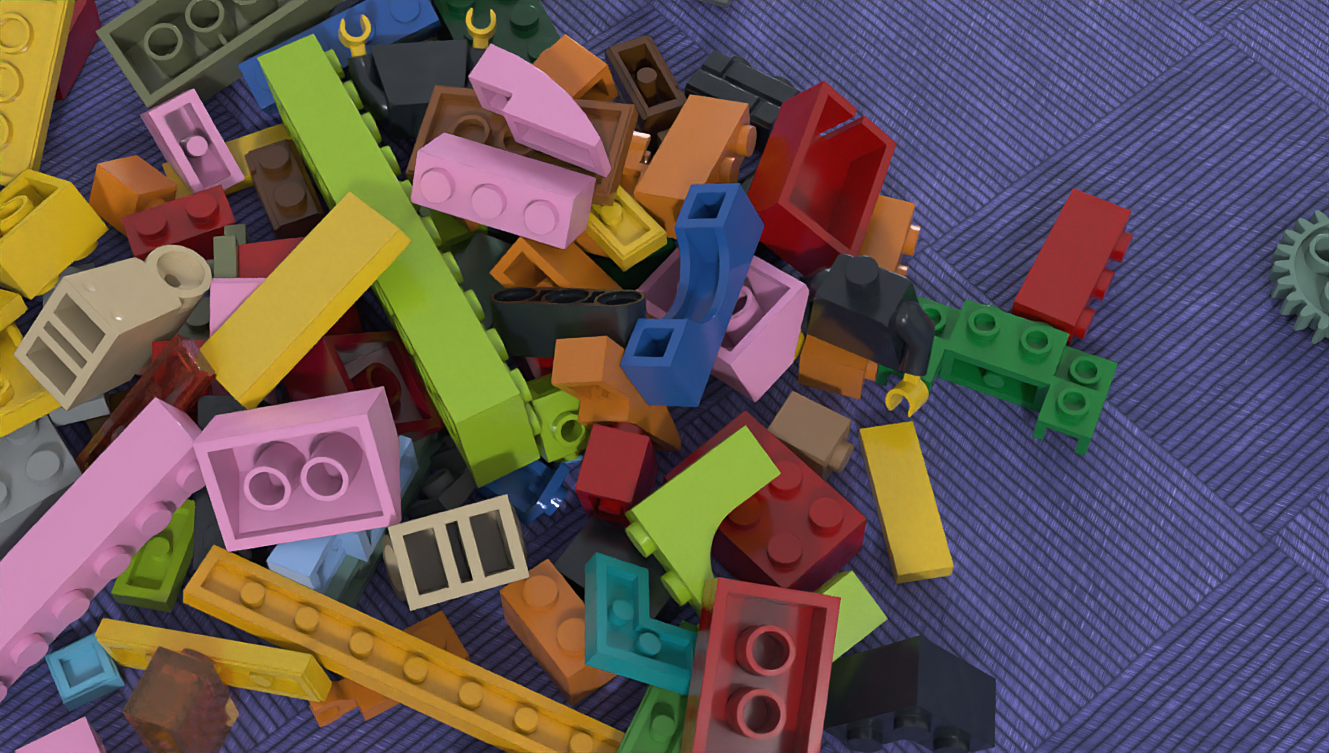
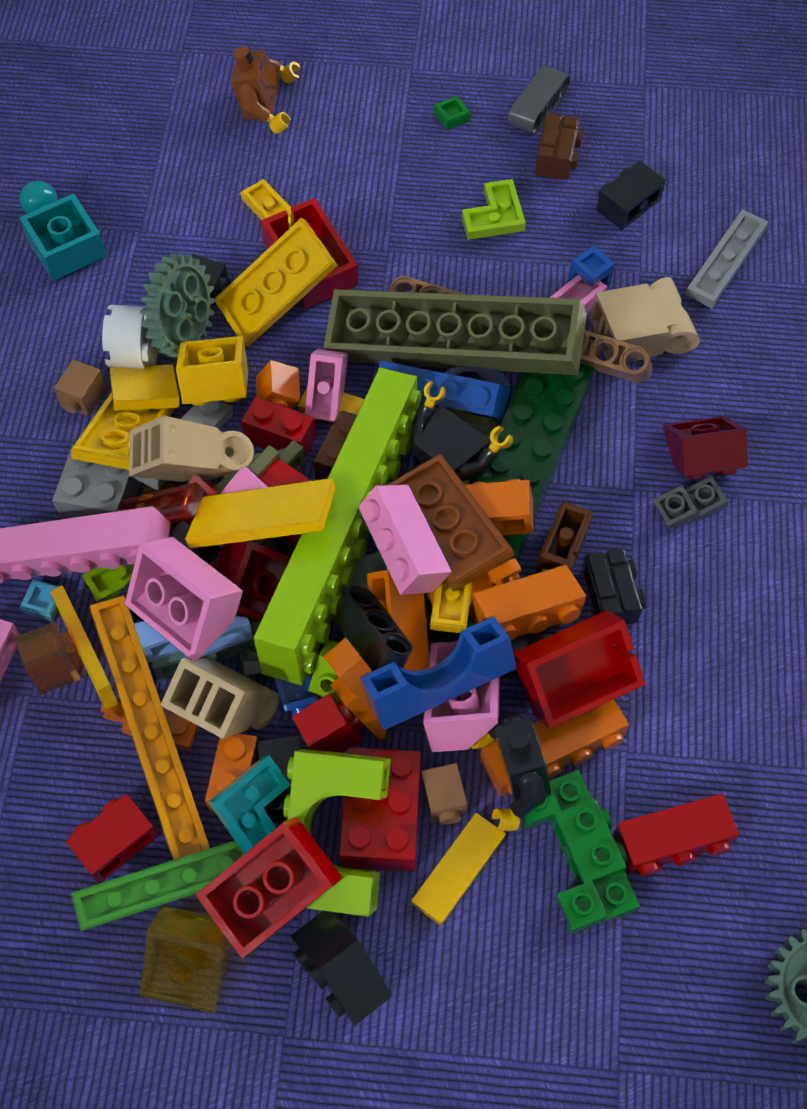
camera: 45 degrees right, 5 degrees up
(537, 110) = (460, 512): bright pink slope -> none

